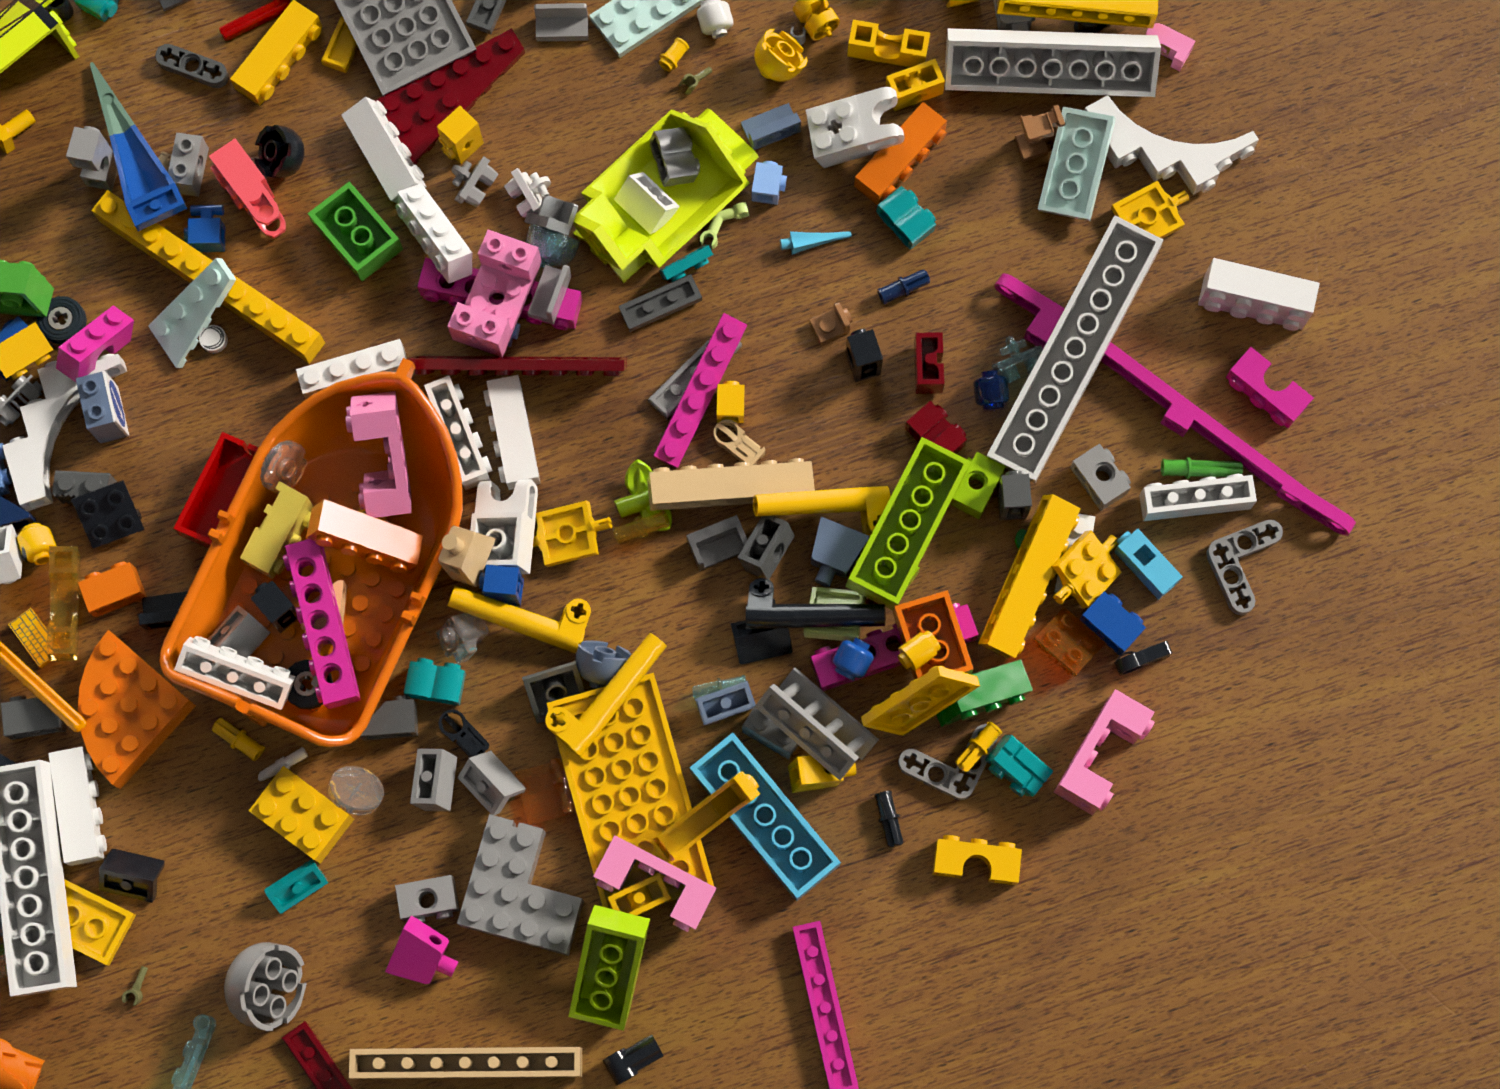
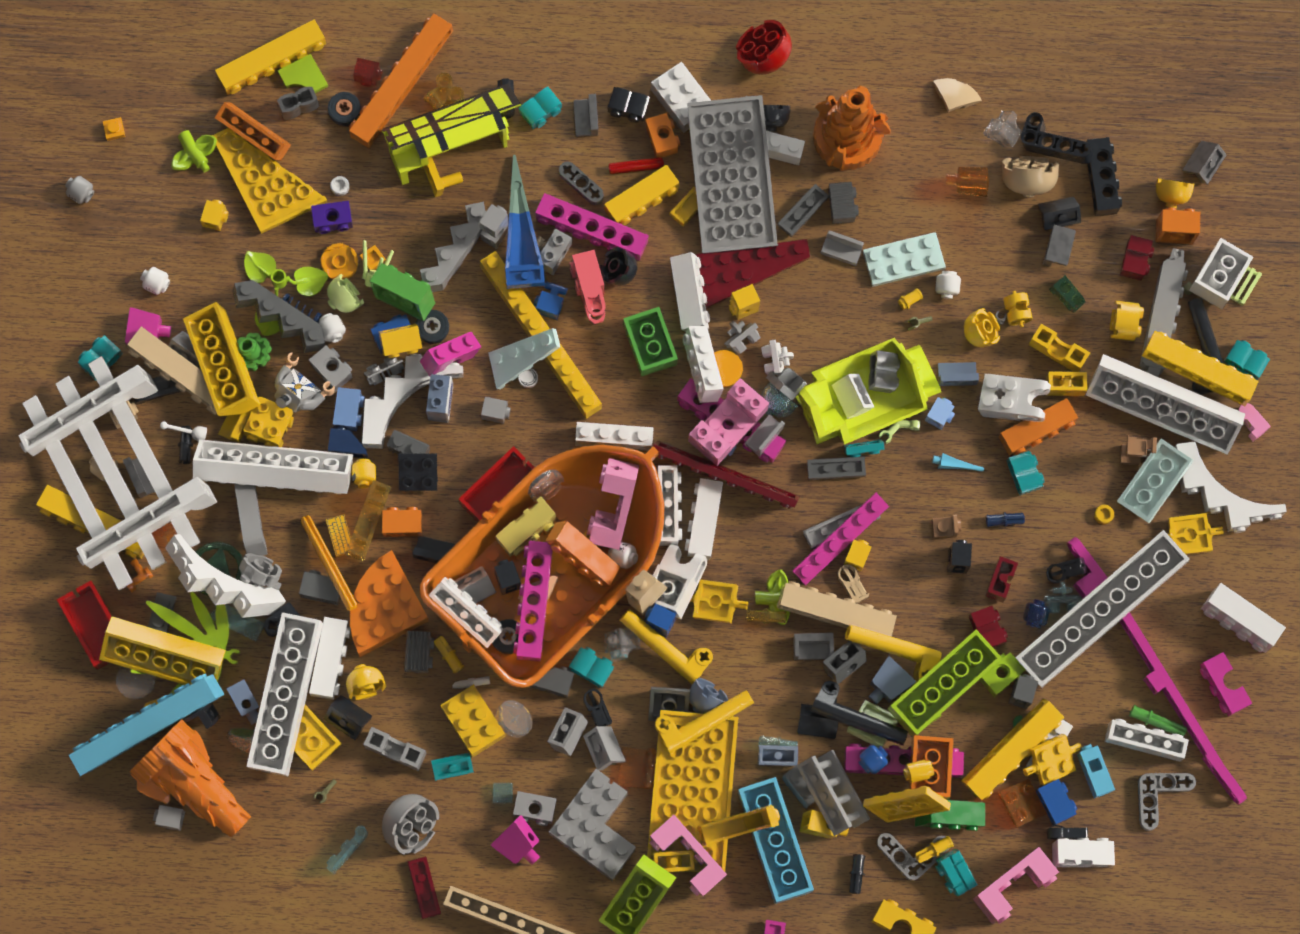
camera: 15 degrees right, 0 degrees up
(54, 219) = (451, 256): none -> light grey brick
(136, 820) = (364, 682): none -> yellow cylinder
(160, 107) = (586, 218): none -> dark pink brick
(183, 396) = (495, 410): none -> light grey brick
(195, 751) = (418, 652): none -> dark grey brick
(208, 894) = (394, 749): none -> light grey arch
(377, 895) = (502, 792): none -> clear light blue tile
(423, 519) = (625, 556): none -> white head
(471, 226) = (729, 367): none -> light orange tile
(1010, 316) = (1068, 569): none -> black piece
(1027, 232) = (1104, 514): none -> yellow tile
(1102, 492) = (1086, 712): light grey brick -> none
(1174, 675) = (1083, 853): none -> white wedge

